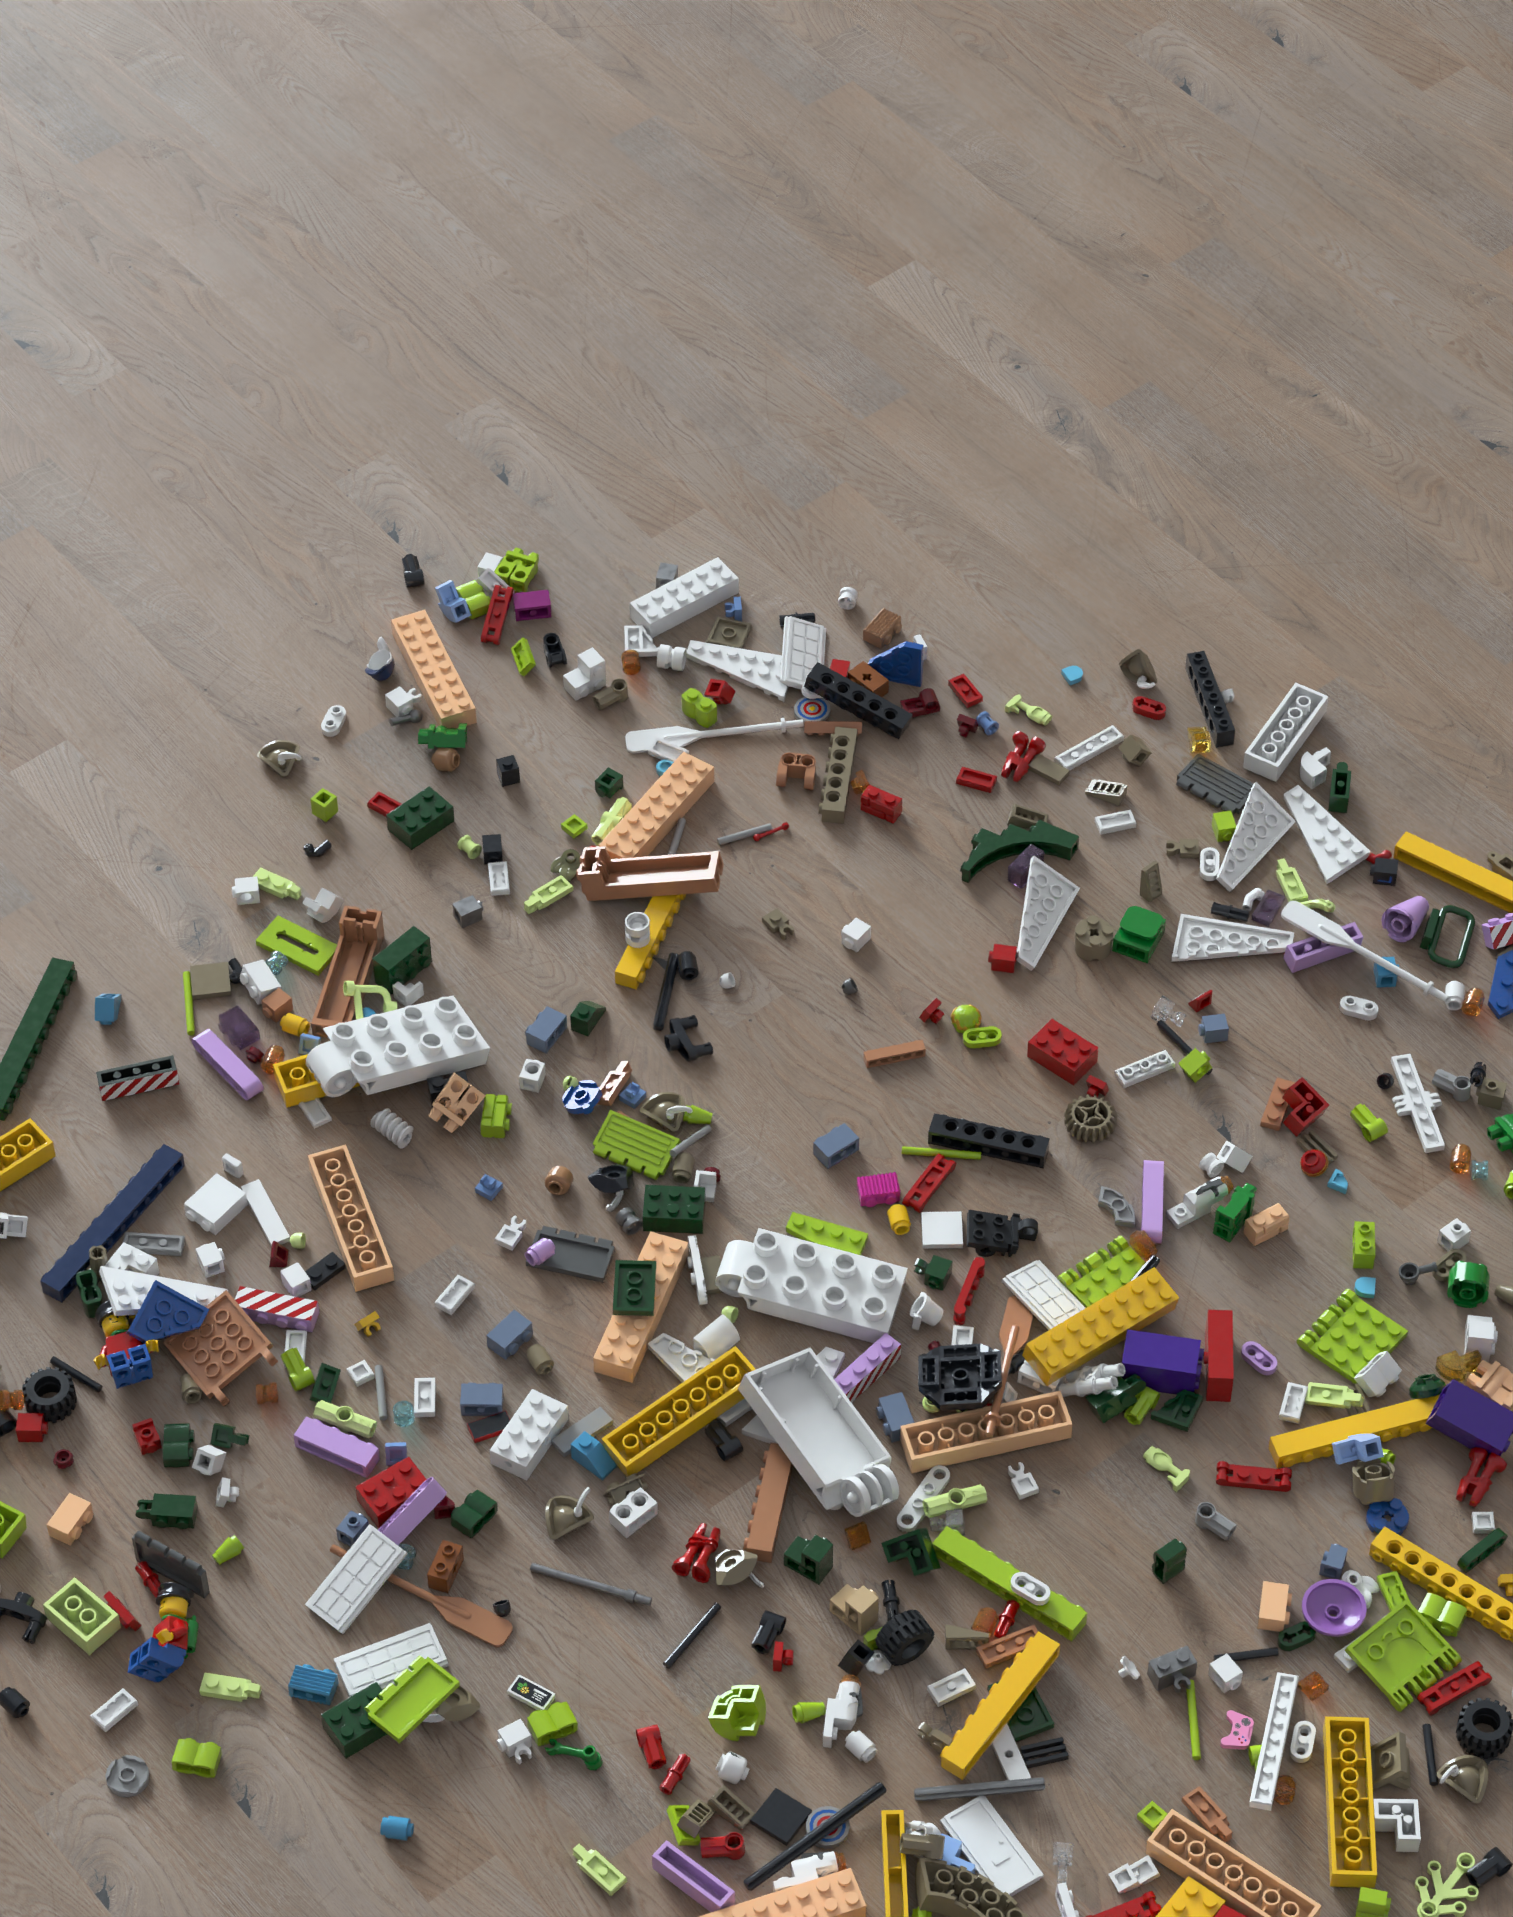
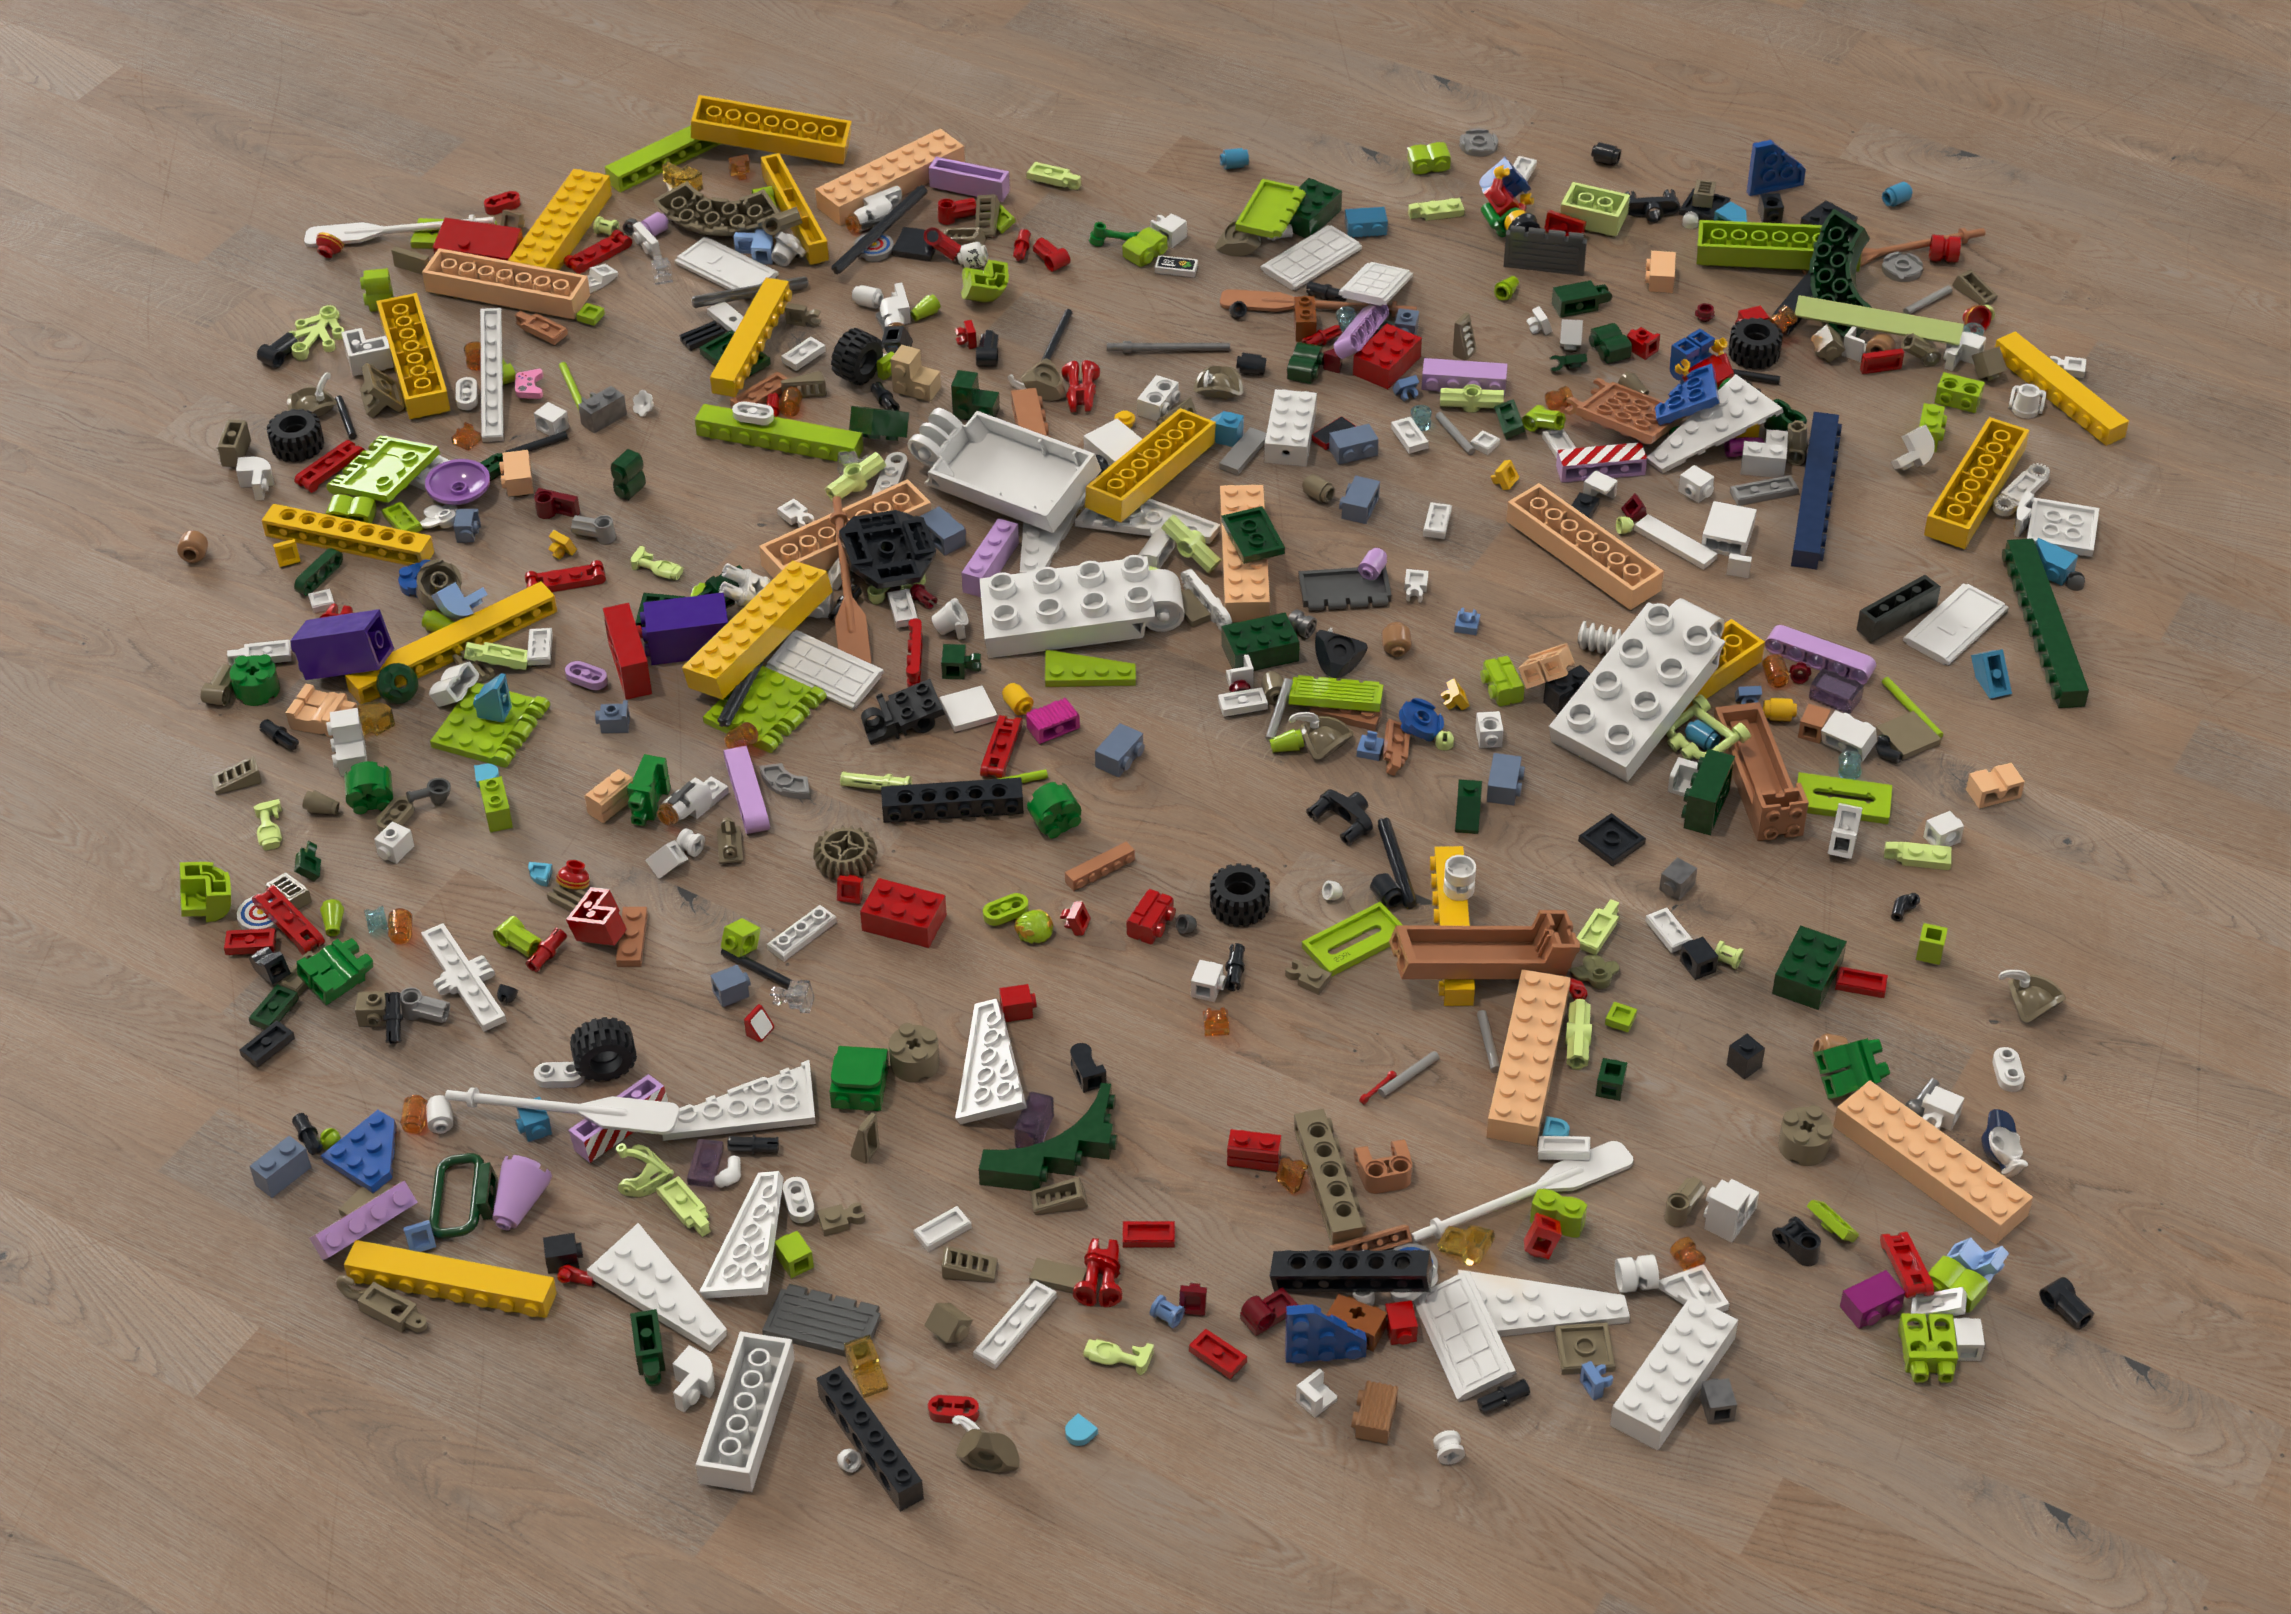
camera: 160 degrees right, 5 degrees down
(78, 1071) = (1955, 624): none -> white piece
(181, 915) = (1995, 787): none -> light nougat brick
(313, 1485) = (1464, 340): none -> dark tan slope
(403, 1603) = (1325, 291): none -> black pin
(434, 1544) = (1322, 337): none -> red axle
(493, 964) = (1612, 839): none -> black tile
(504, 708) = (1805, 1135): none -> dark tan brick
(524, 1529) = (1251, 364): none -> black brick
(539, 1115) = (1455, 695): none -> yellow tile
(674, 1503) = (1126, 418): none -> yellow plate
(686, 1318) = (1191, 543): none -> yellowish green piece
(699, 1464) = (1111, 441): none -> white brick
(723, 1162) = (1242, 702): none -> white plate
(754, 929) = (1372, 917): none -> lime piece
(762, 1789) = (944, 244): none -> red piece
(767, 704) = (1468, 1244): none -> clear yellow brick
(801, 977) = (1239, 894): none -> black tyre
(829, 942) = (1235, 967): none -> black pin
(862, 909) = (1216, 1022): none -> clear orange tile
(875, 996) = (1150, 916): none -> red brick
(913, 1095) = (1054, 809): none -> green brick
(972, 891) = (1084, 1068): none -> black leg
(1035, 1174) = (871, 781): none -> yellowish green pin
(1179, 1158) = (729, 842): none -> dark tan hinge
(1243, 1563) = (552, 502): none -> dark red plate
(1245, 1305) = (613, 718): none -> sand blue brick
(1248, 1510) = (561, 545): none -> yellow tile
(1324, 991) = (603, 1049): none -> black tyre
(1347, 1106) = (546, 949): none -> red pin
(1348, 1327) = (493, 700): none -> dark azure slope
(1483, 910) = (420, 1236): none -> medium blue tile

